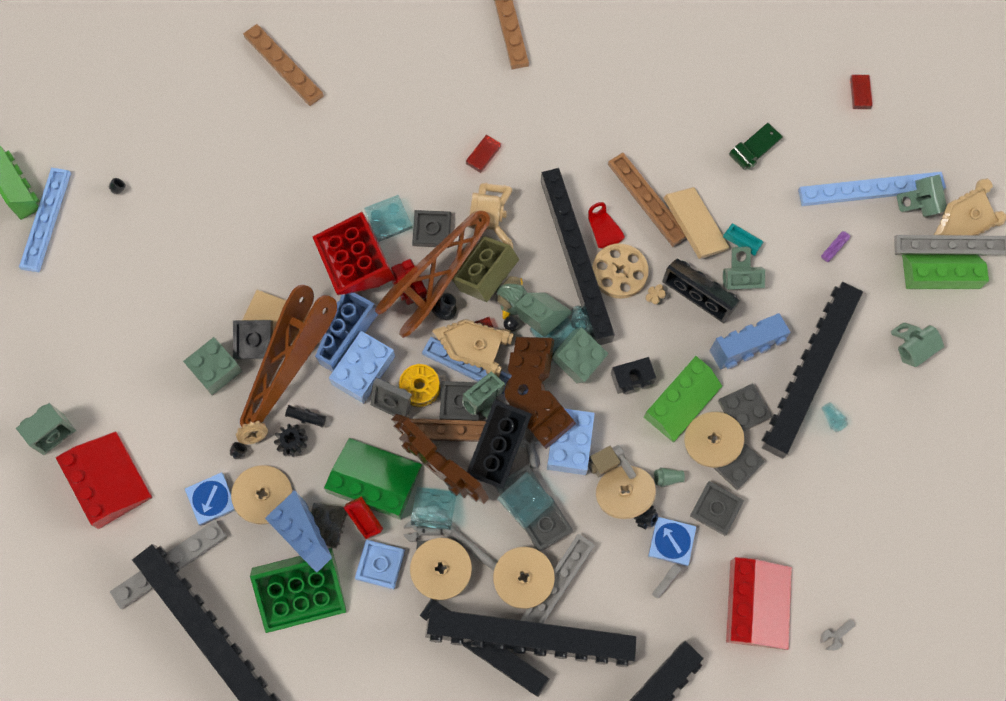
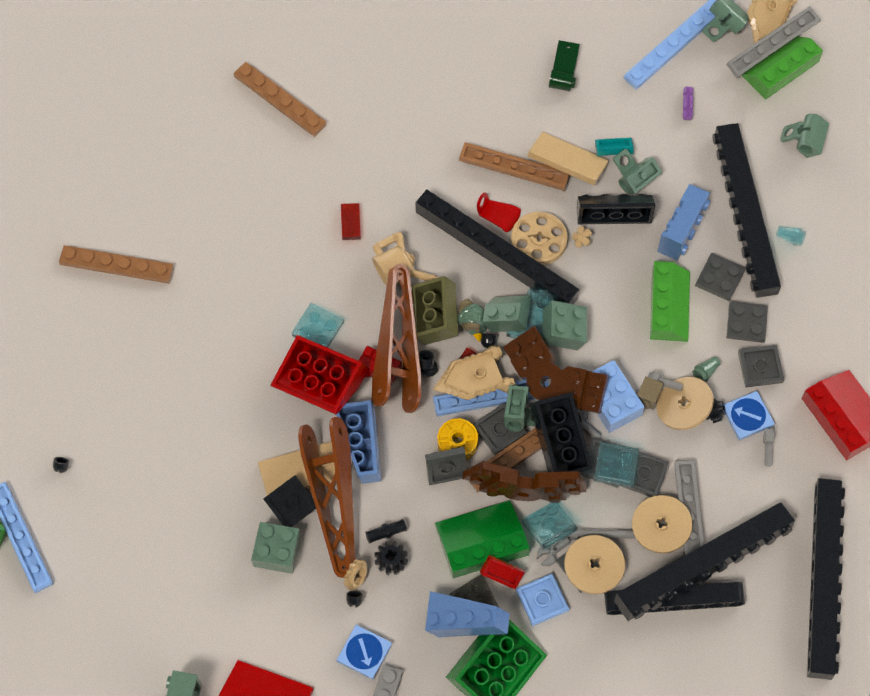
camera: 35 degrees left, 5 degrees down
(253, 481) = (388, 612): tan piece -> none
(361, 366) = (399, 459): light blue brick -> none
(430, 227) = (359, 311): dark grey tile -> none
(641, 368) = (621, 302): black brick -> none
(724, 450) = (709, 327): tan piece -> none

